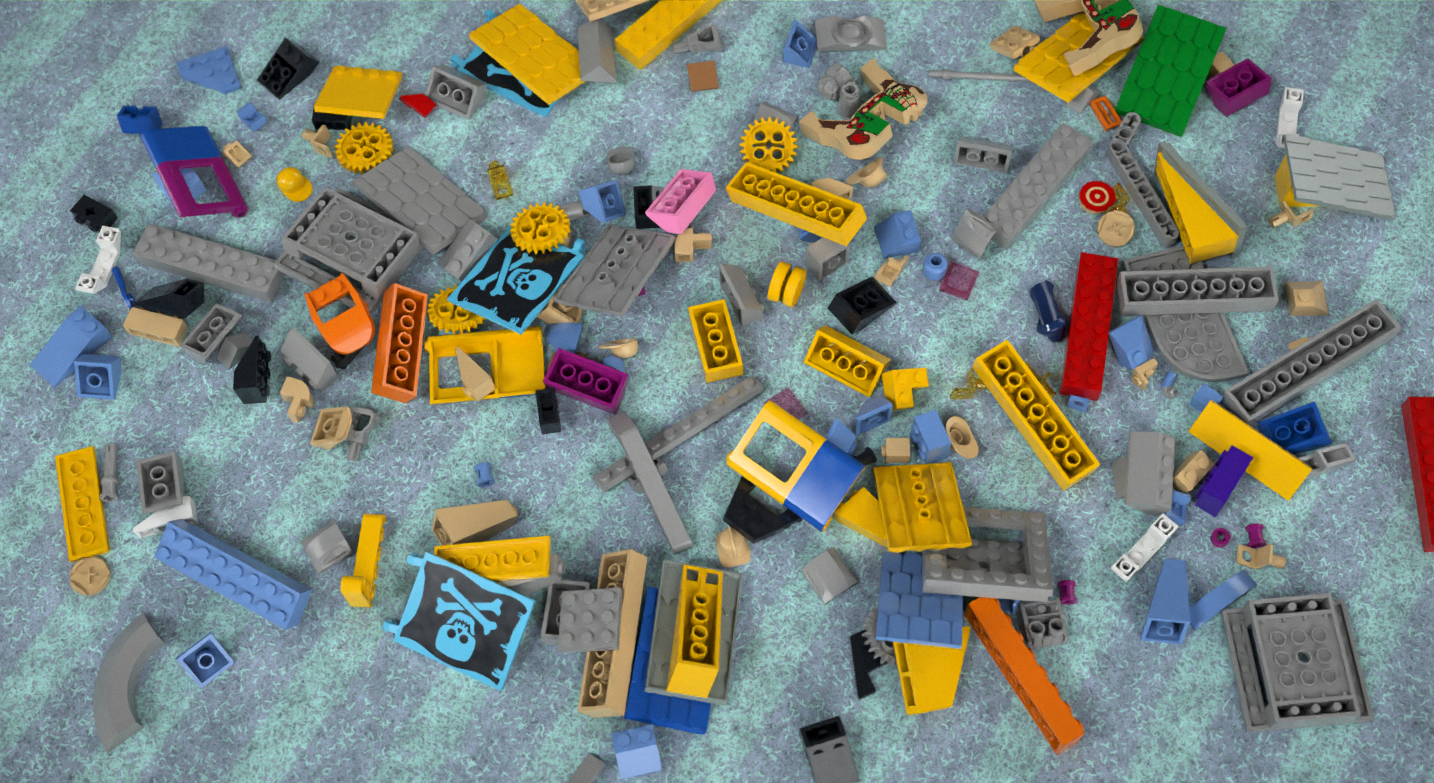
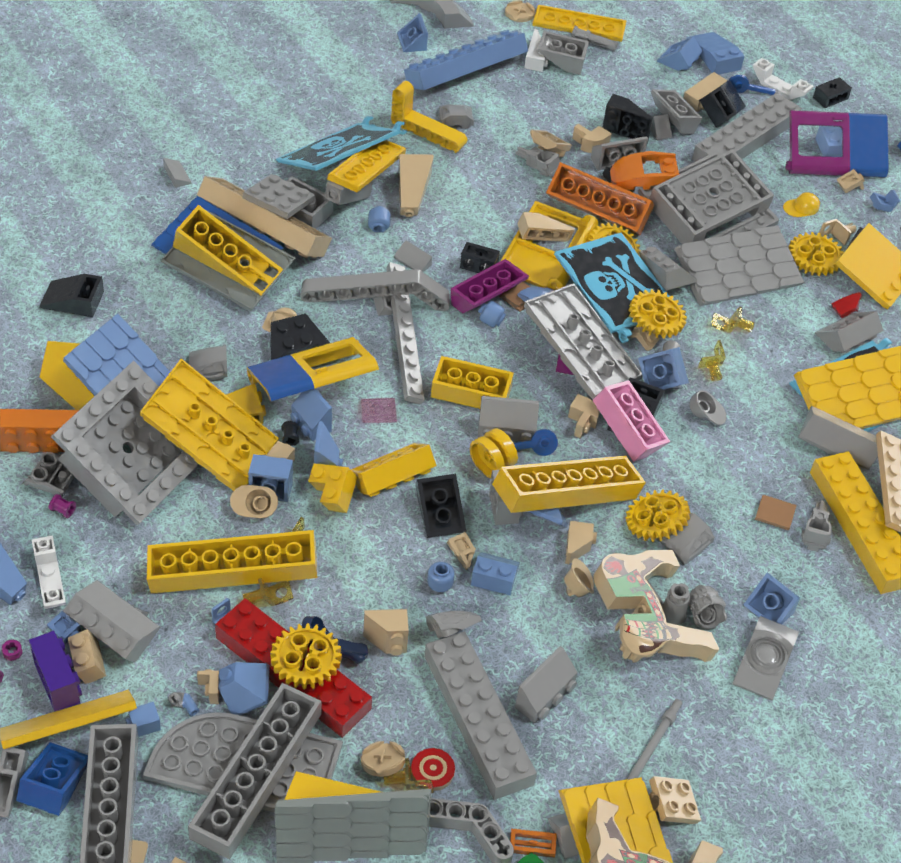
camera: 110 degrees right, 15 degrees down
(484, 474) = (452, 209): medium blue bush -> none
(541, 528) = (379, 219): none -> medium blue head
(562, 175) = (714, 362): none -> clear yellow bracket
(574, 477) = (413, 257): none -> light grey slope
(622, 348) = (508, 325): tan cap -> none
(636, 751) = (170, 200): medium blue slope -> none
(745, 263) = (542, 442): none -> blue piece
(959, 281) = (415, 595): clear pink piece -> none
(1012, 271) = (387, 630): none -> tan slope
(1089, 303) = (325, 661): none -> yellow gear

